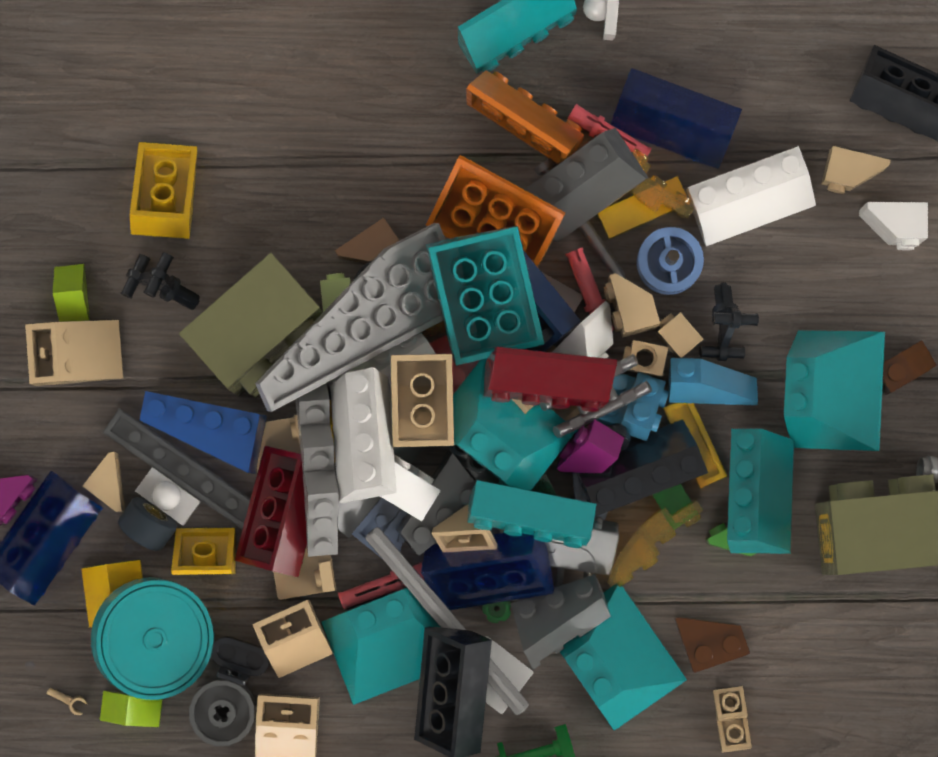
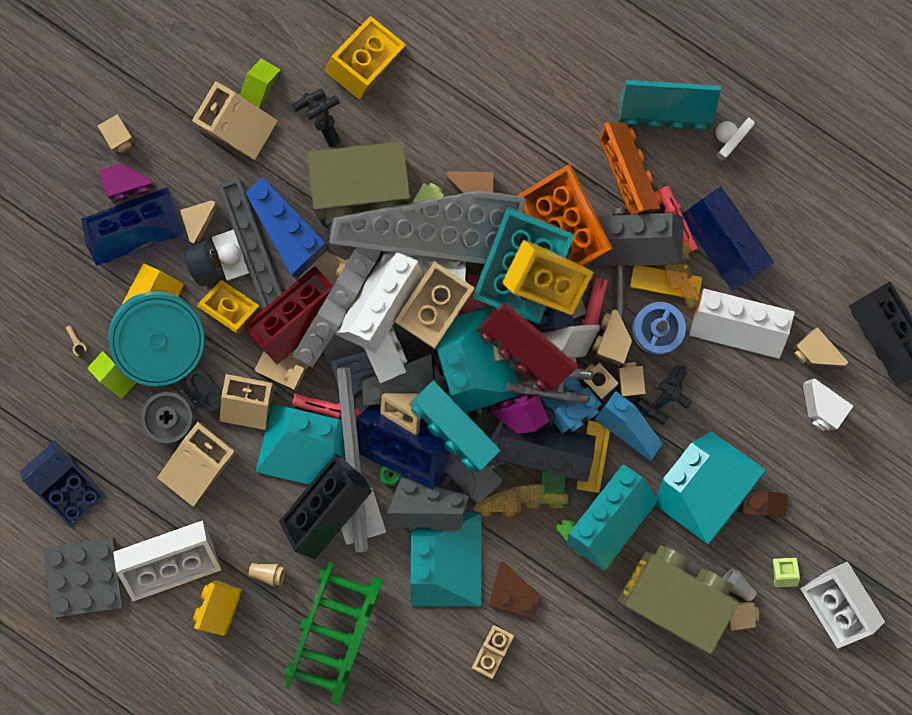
camera: 30 degrees right, 0 degrees up
(520, 291) = (547, 278): none -> yellow slope

